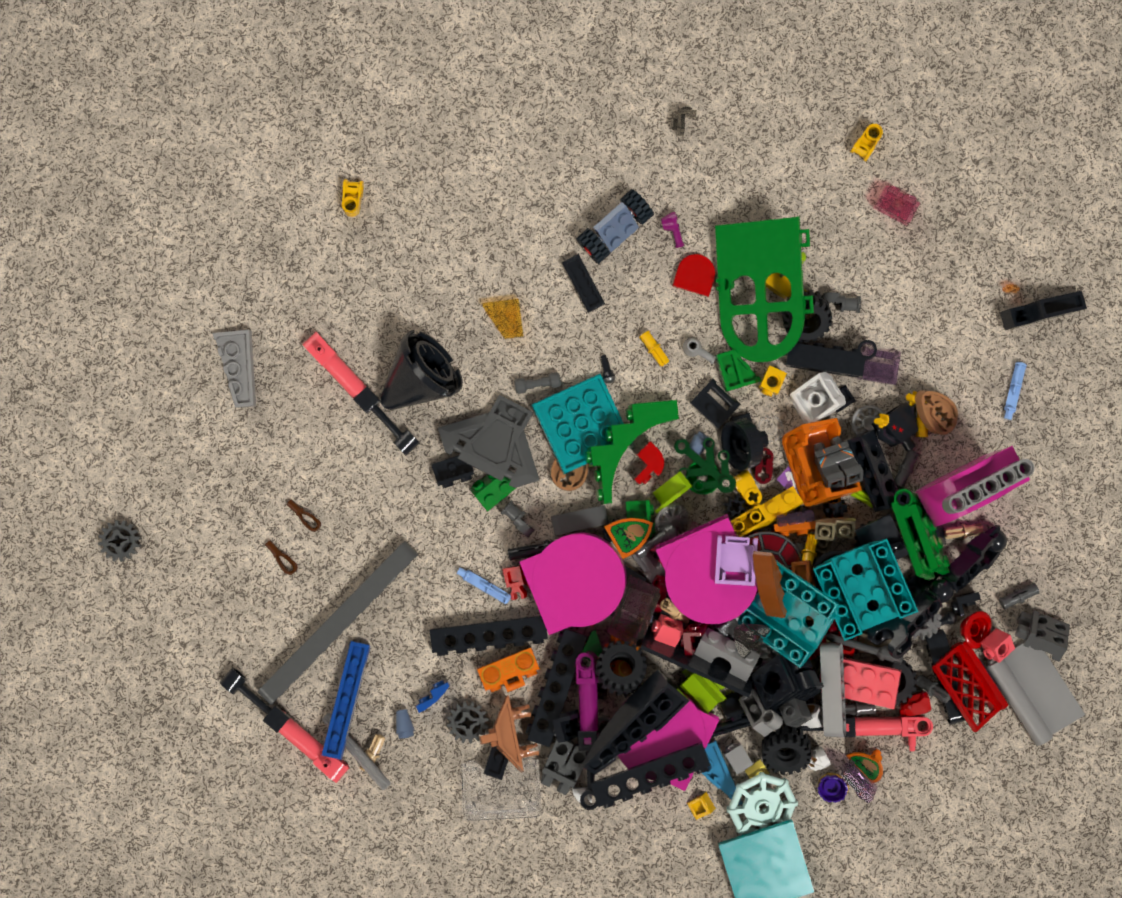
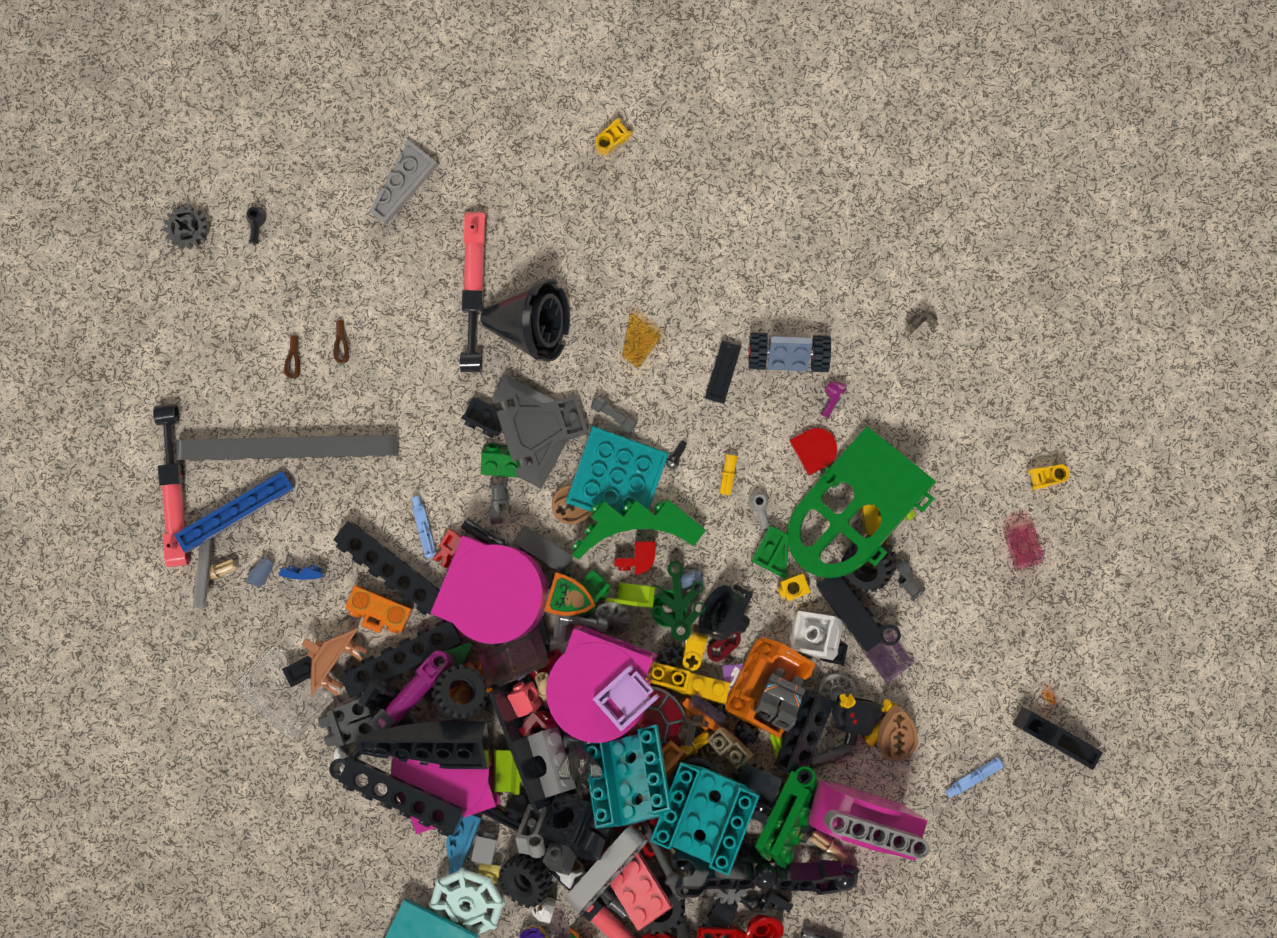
camera: 50 degrees right, 0 degrees up
(164, 491) = (255, 222): none -> black bar
(468, 730) = (314, 611): dark grey gear -> none
(701, 806) = (422, 856): yellow slope -> none
(711, 408) = (726, 562): black plate -> none
(768, 583) = (634, 739): dark orange slope -> none
(796, 544) = (687, 730): none -> clear smoke bracket

